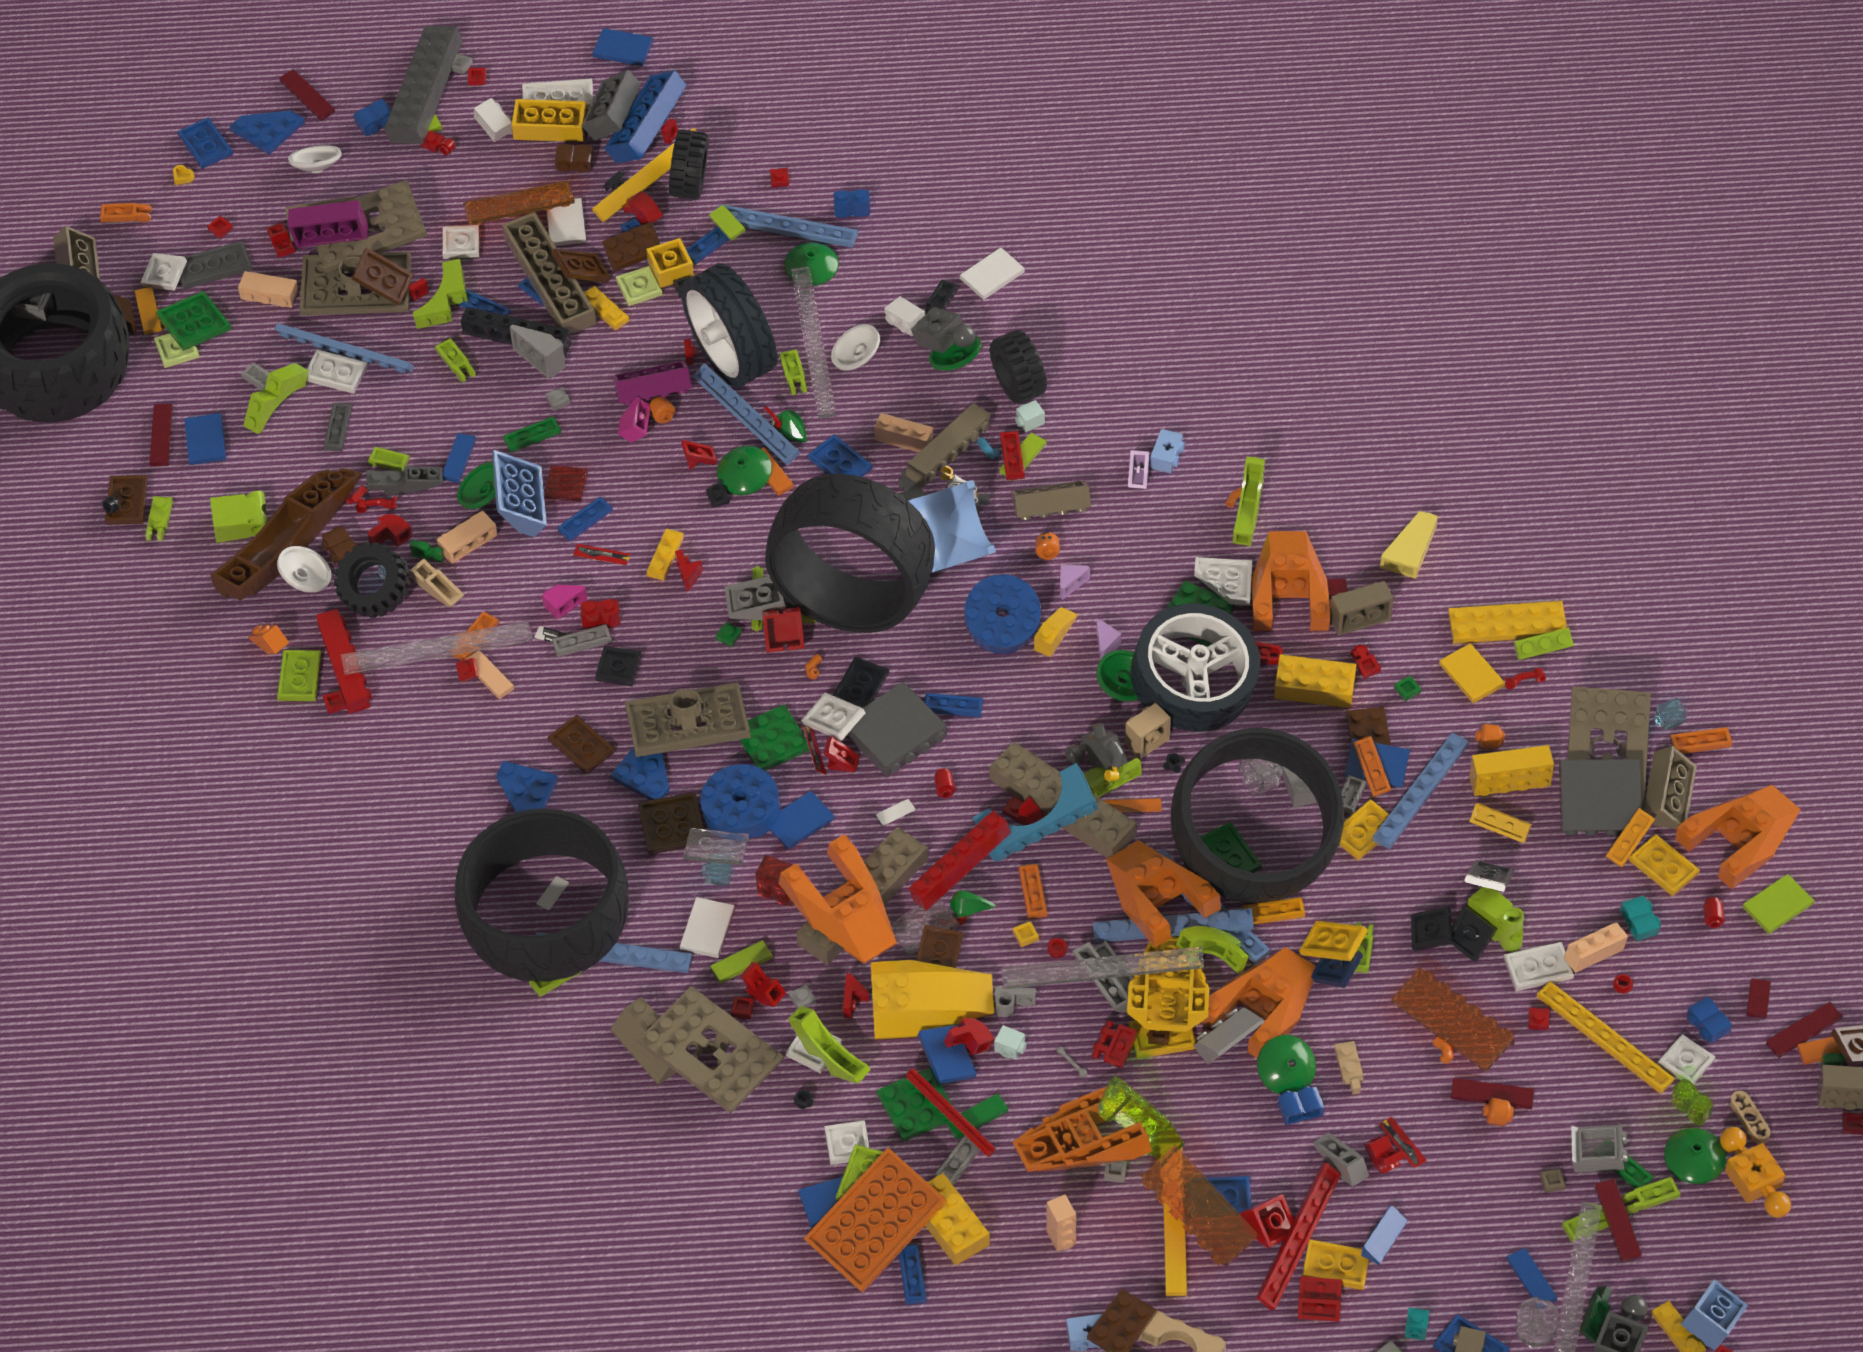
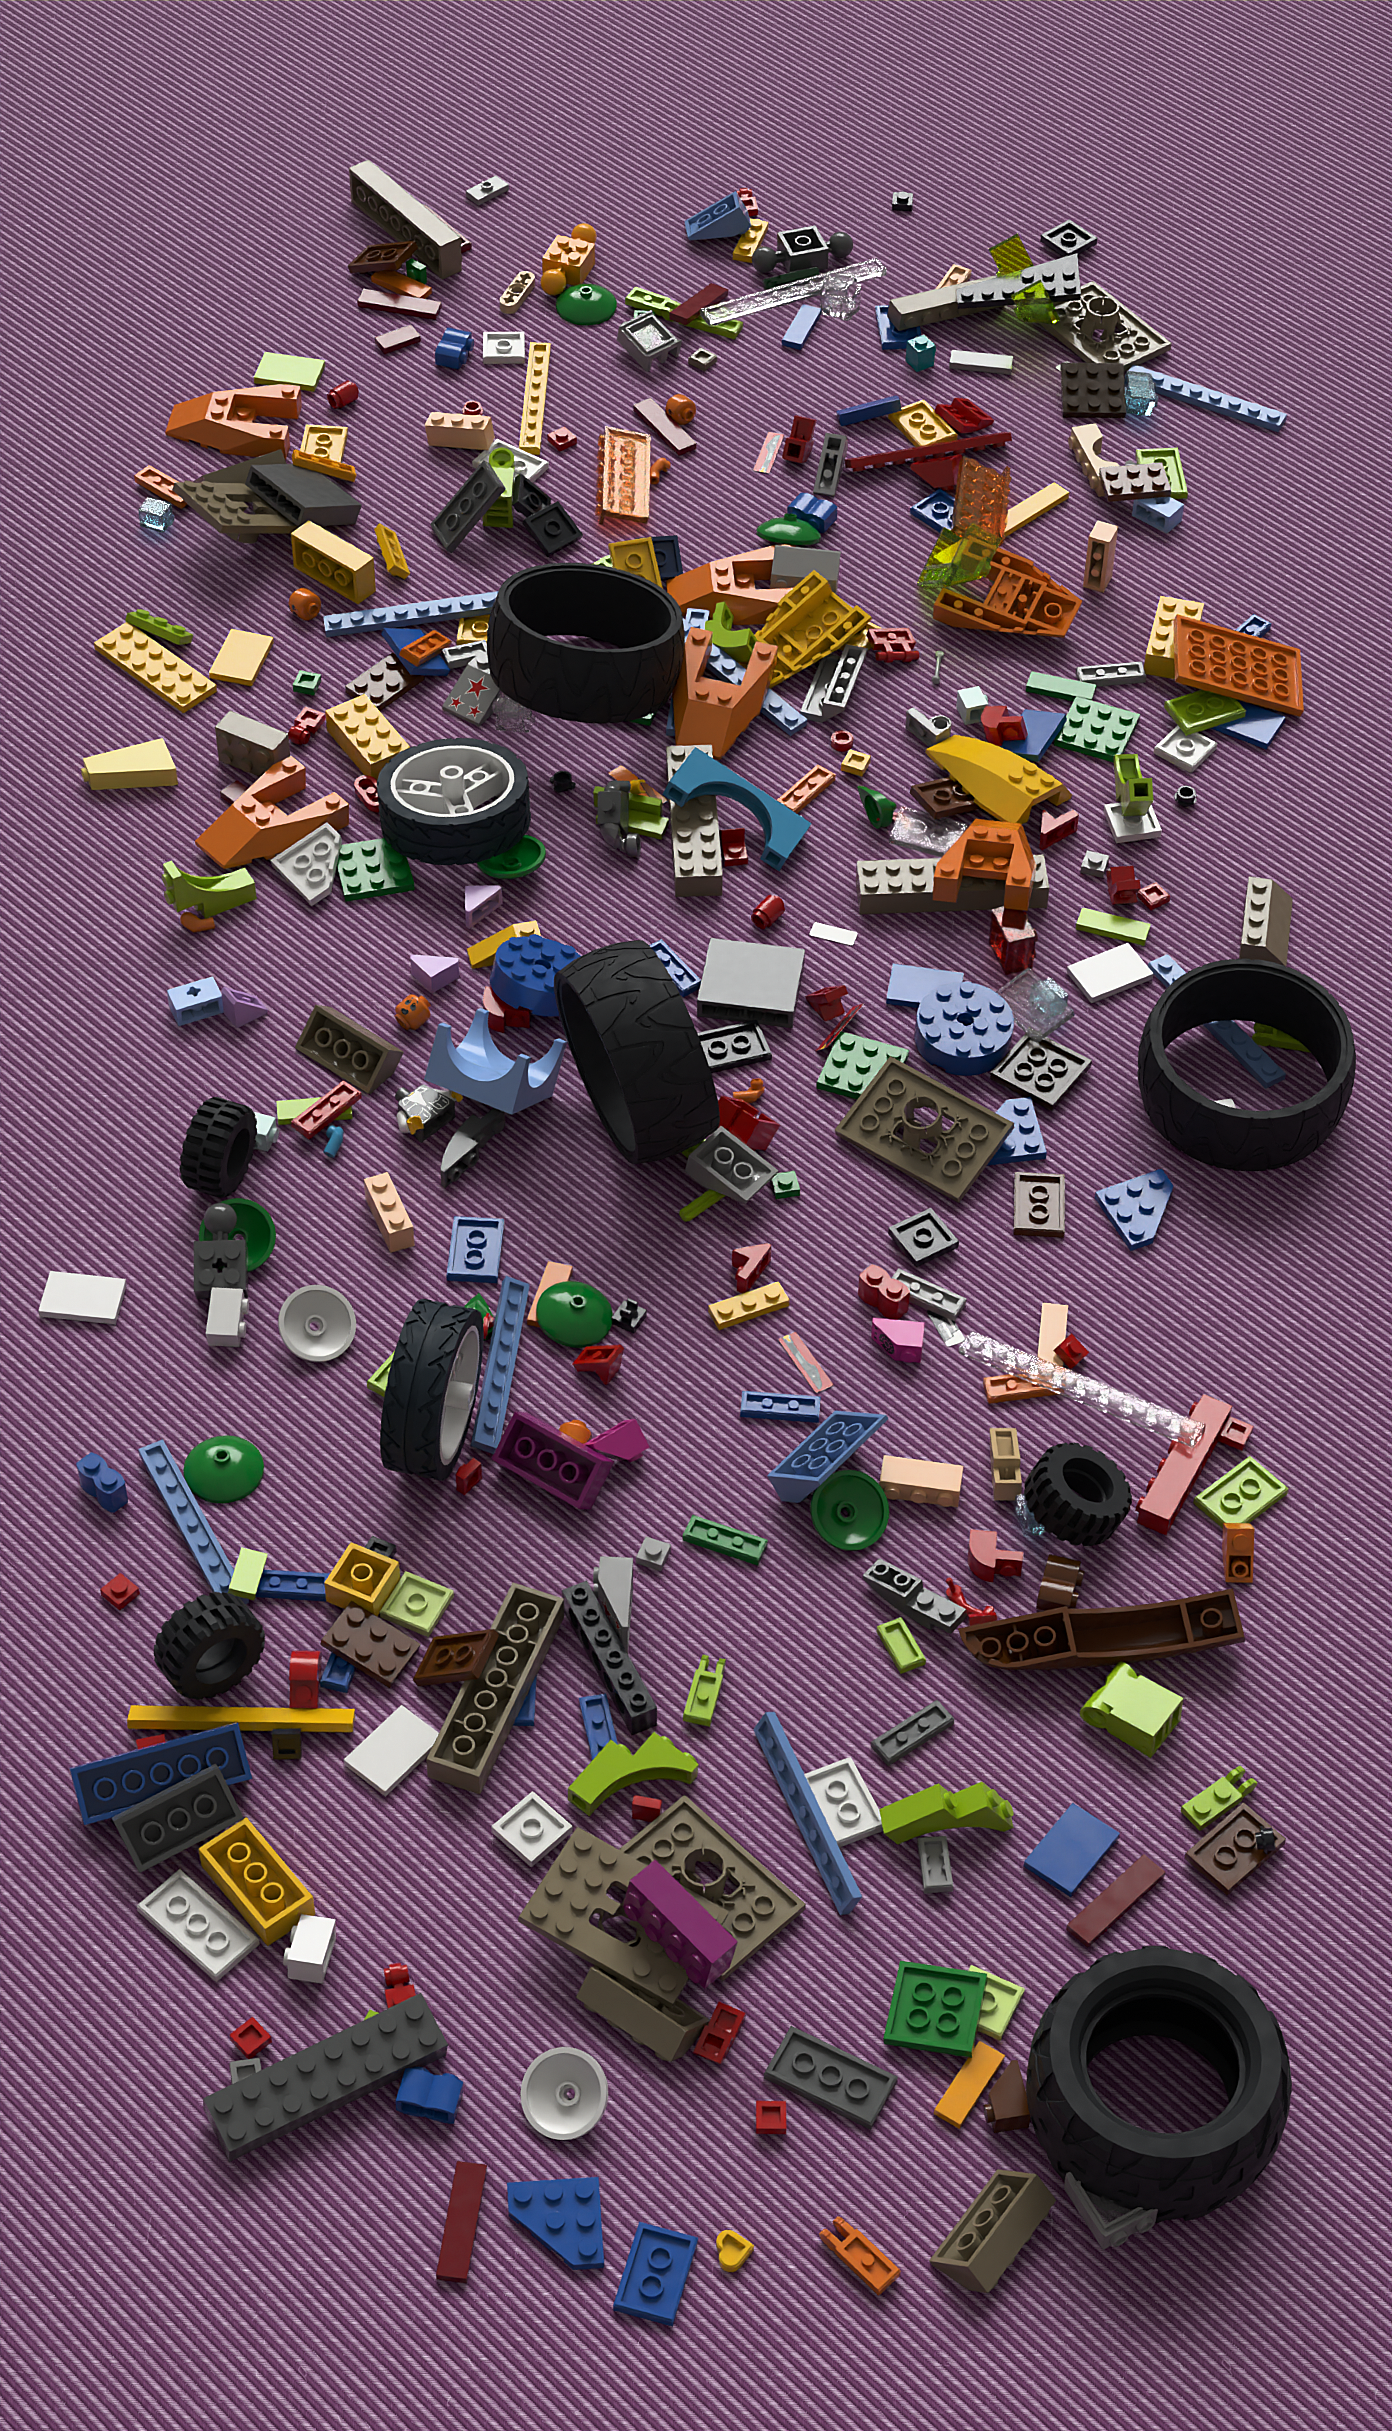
camera: 135 degrees left, 5 degrees down
(163, 271) = (903, 2109): white plate -> none
(268, 289) = (809, 1970): light nougat brick -> none
(304, 569) = (1129, 1579): white dish -> none
(382, 276) = (683, 1827): reddish brown plate -> none
(424, 551) = (980, 1506): green plate -> none
(458, 457) = (827, 1580): blue tile -> none
(518, 203) = (424, 1796): clear orange bracket -> none
(566, 483) = (755, 1452): clear red plate -> none
(574, 158) = (288, 1814): reddish brown brick -> none
(606, 308) = (483, 1602): yellow plate -> none
(622, 47) = (49, 1919): blue tile -> none
(735, 1073) = (1230, 879): dark tan plate -> none
(813, 343) = (331, 1381): clear plate -> none
(833, 716) = (794, 1024): white tile -> none
(942, 295) = (169, 1311): black hinge -> none
(948, 445) = (371, 1156): dark tan brick -> none
(950, 1112) = (1084, 692): red axle -> none
(959, 860) = (848, 823): red brick -> none
(1102, 968) = (843, 670): clear plate -> none
(1147, 730) = (555, 802): tan brick -> none
(1349, 1065) = (738, 512): tan hinge -> none
(1538, 674) = (198, 617): red piece -> none
(1640, 918) = (396, 429): teal brick -> none
(1689, 1100) = (544, 318): clear neon green brick -> none

